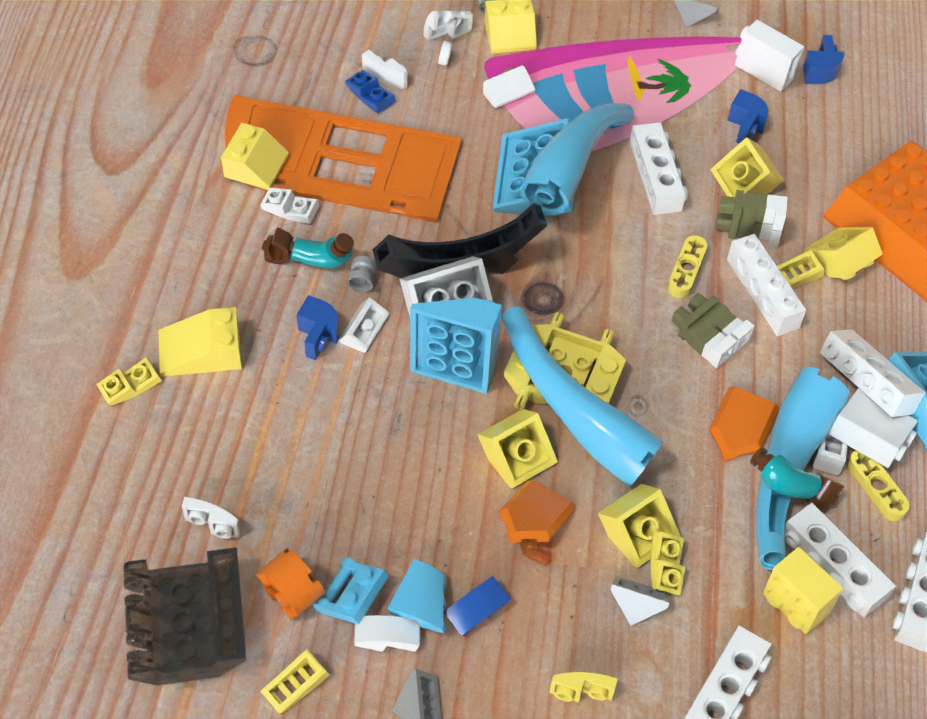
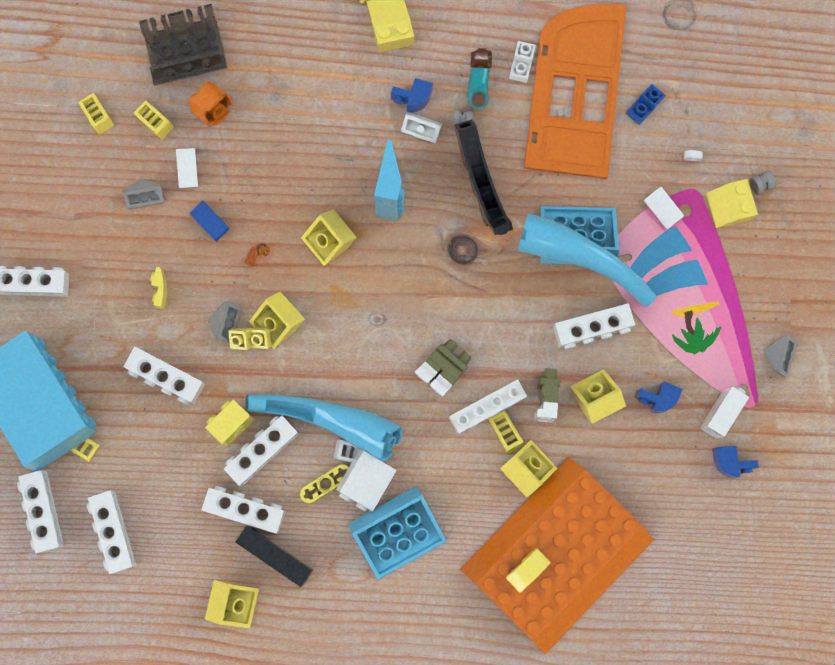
camera: 85 degrees right, 25 degrees up
(220, 521) = (256, 54): white slope -> none
(253, 157) = (558, 28): light yellow slope -> none
(357, 595) = (210, 147): medium azure plate -> none
(387, 72) = (666, 113): white slope -> none
(421, 597) = (211, 185): medium azure slope -> none
(448, 282) = (443, 176): white brick -> none
(451, 22) = (727, 159): white slope -> none
(535, 513) = (277, 250): orange tile -> none
(573, 354) = (382, 257): light yellow piece -> none
(600, 428) = (337, 288): medium azure brick -> none
(689, 275) = (490, 342): light yellow beam -> none
(742, 423) = (367, 390): orange tile -> none
(794, 482) = (306, 410): teal piece -> none
(872, 373) = (418, 479): white brick -> none

